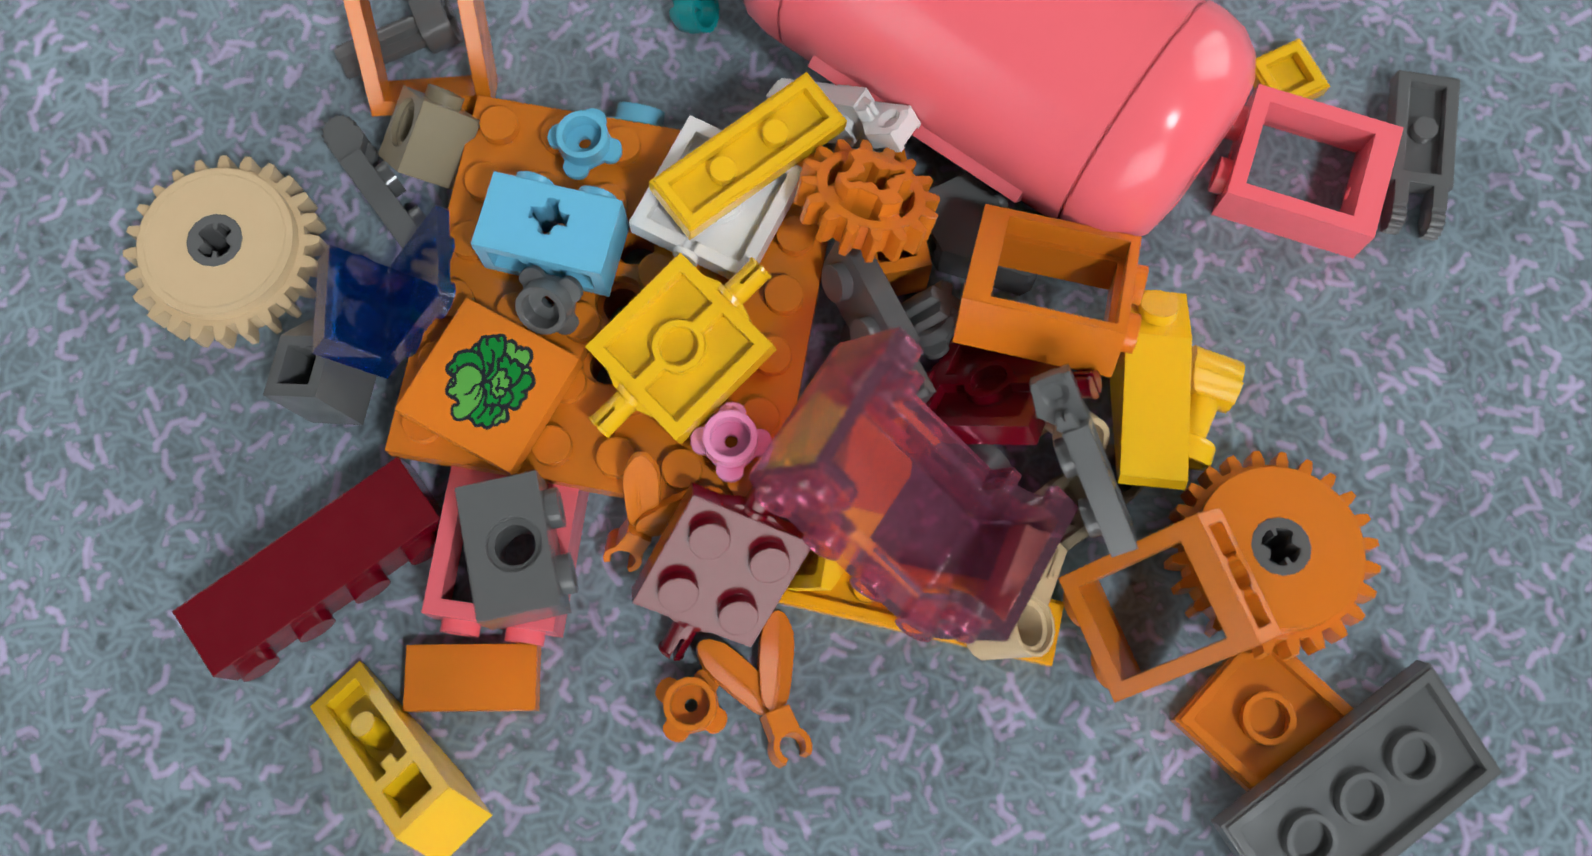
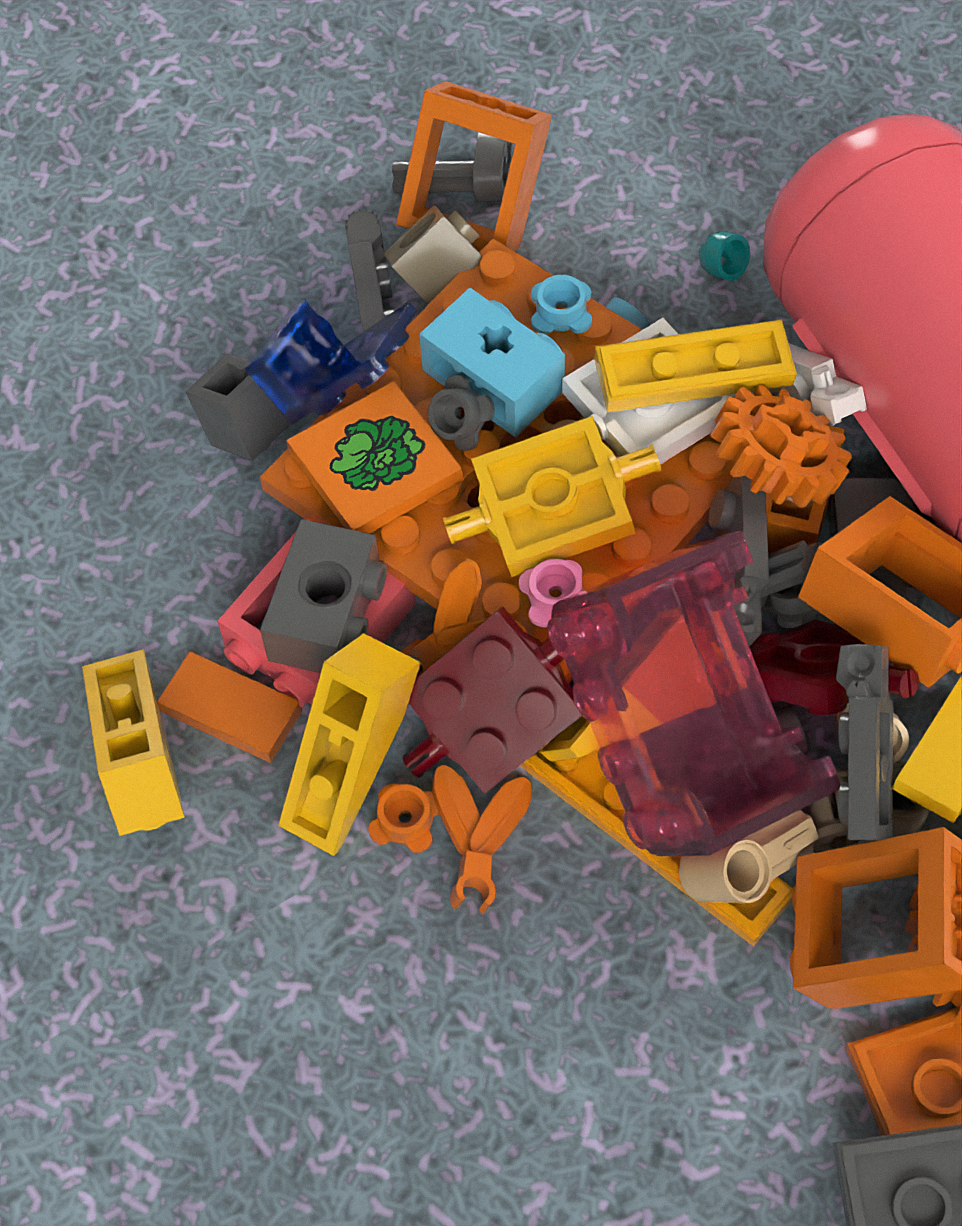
camera: 30 degrees right, 15 degrees down
(260, 277) = (216, 279): tan gear -> none
(312, 573) = (146, 556): dark red brick -> none
(608, 670) = (346, 739): none -> yellow slope

